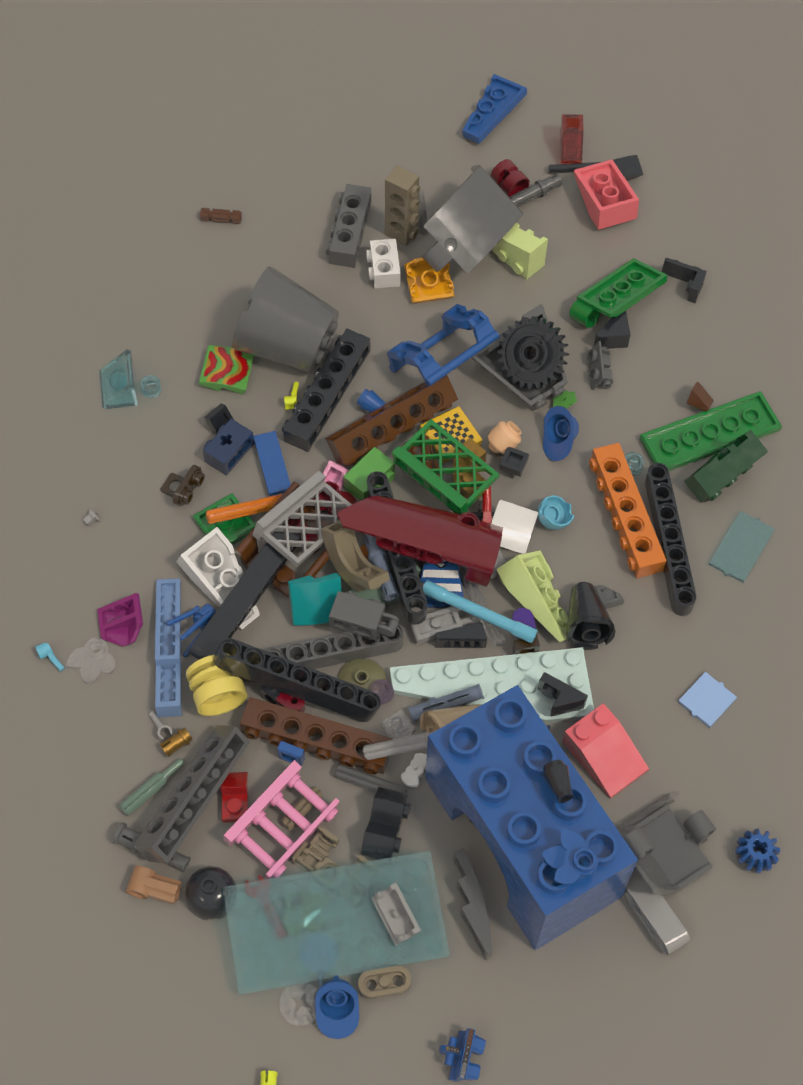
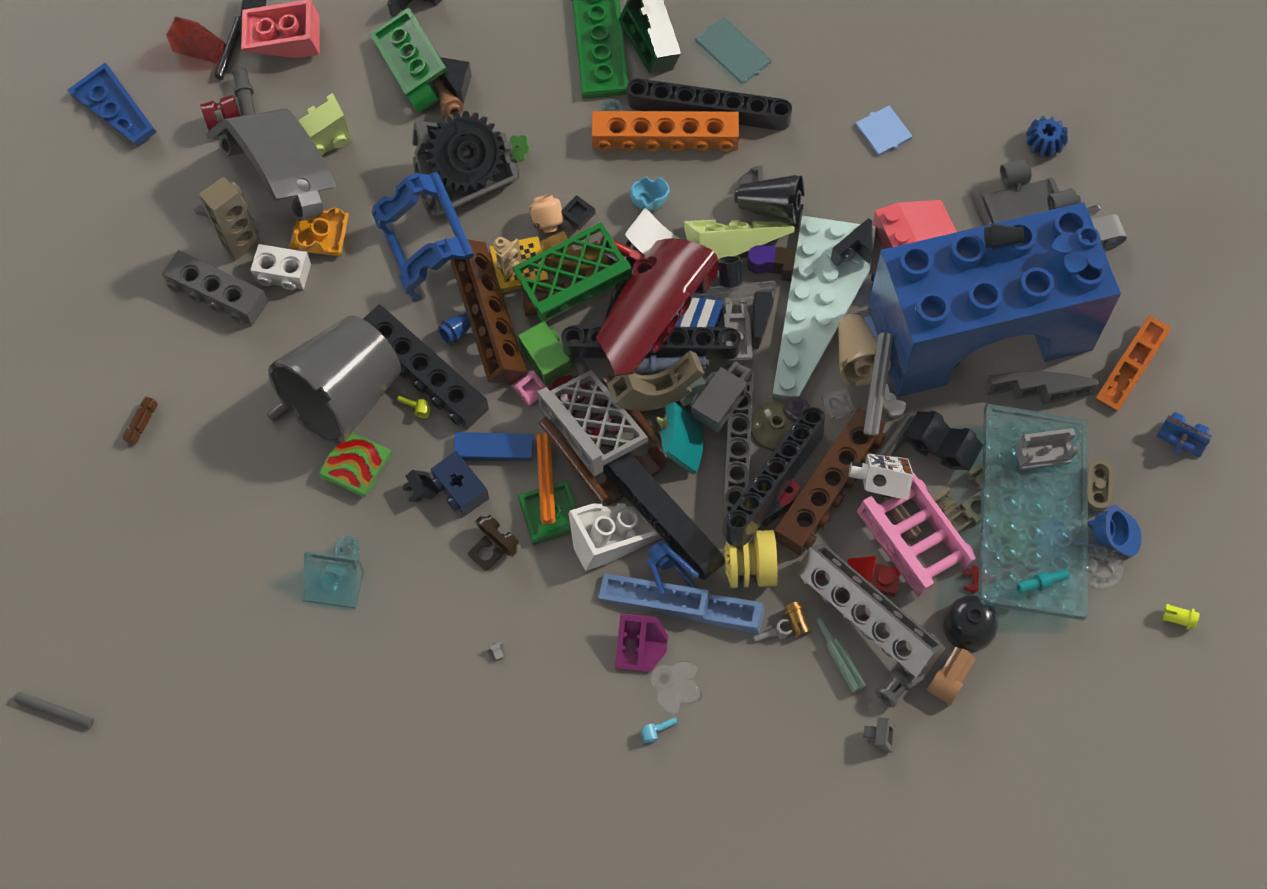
camera: 70 degrees left, 5 degrees up
(82, 838) = (881, 735): none -> dark grey tile
(258, 939) = (1042, 581): none -> teal bar
(290, 753) = (843, 509): blue tile -> none
(328, 775) = (884, 475): none -> white torso
(442, 413) = (507, 255): none -> tan hinge
(475, 693) = (829, 351): sand blue pin -> none
(498, 598) = (730, 271): none -> black beam
(514, 627) = (773, 262): medium azure piece -> none
(529, 990) = (1133, 363): none -> orange slope
(559, 433) = (559, 163): blue piece -> none
(586, 337) = (448, 102): none -> nougat cone
(598, 359) = (488, 106): dark grey hinge -> none
(700, 398) = (559, 30): reddish brown slope -> none

